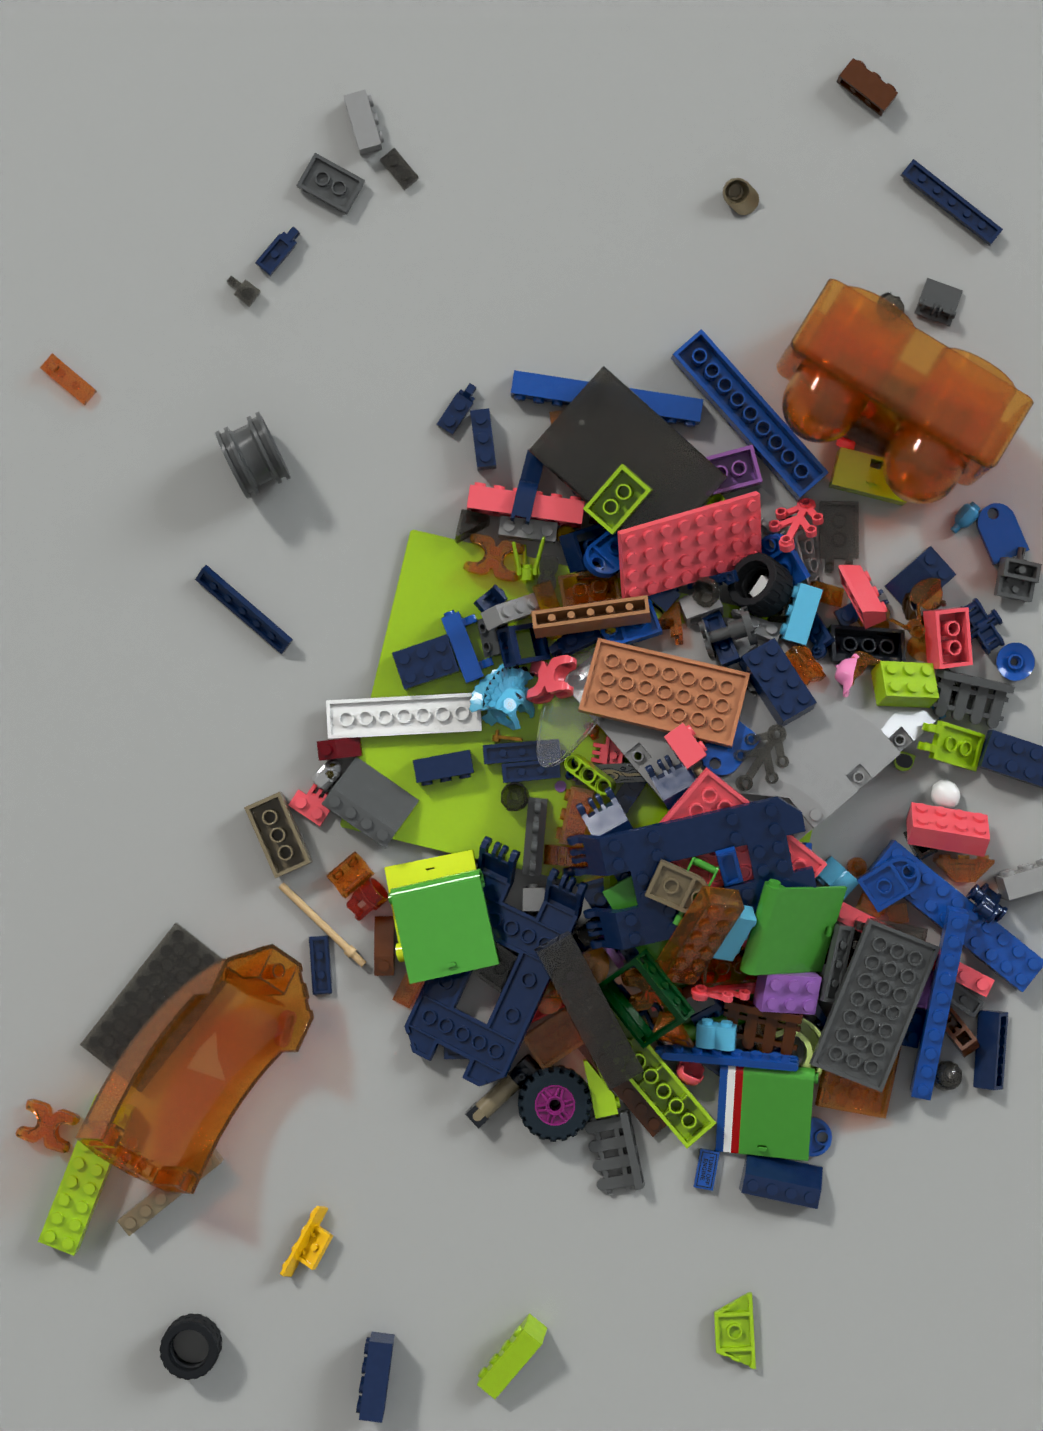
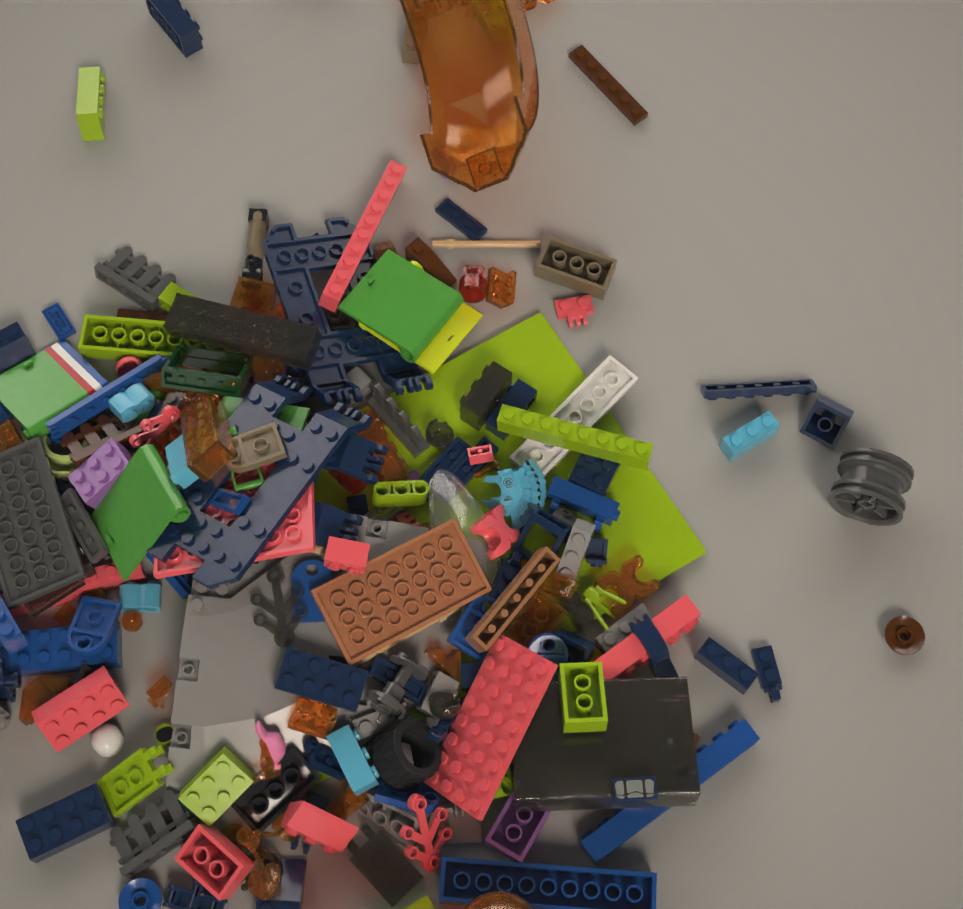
camera: 135 degrees right, 20 degrees down
(81, 975) = (608, 85): none -> reddish brown plate
(161, 975) = (555, 133): clear smoke plate -> none
(221, 537) = (826, 421): none -> dark blue slope
(290, 580) = (749, 436): none -> medium azure brick
(310, 1244) = (294, 58): yellow bracket -> none
(327, 774) = (584, 335): light grey rock -> none
(338, 331) = (910, 629): none -> reddish brown dish
(339, 748) = (595, 355): dark red slope -> none
(370, 802) = (536, 340): dark grey slope -> none
(415, 1015) = (362, 236): none -> coral brick
(428, 693) = (574, 437): none -> lime brick
(454, 793) = (484, 395): none -> clear smoke brick
(470, 523) = (669, 592): clear smoke slope -> none
(503, 749) = (480, 454): none -> coral piece
(554, 1121) = (210, 266): black wheel -> none
(644, 408) = (634, 789): none -> tile
(879, 795) = (159, 689): none -> clear orange bracket

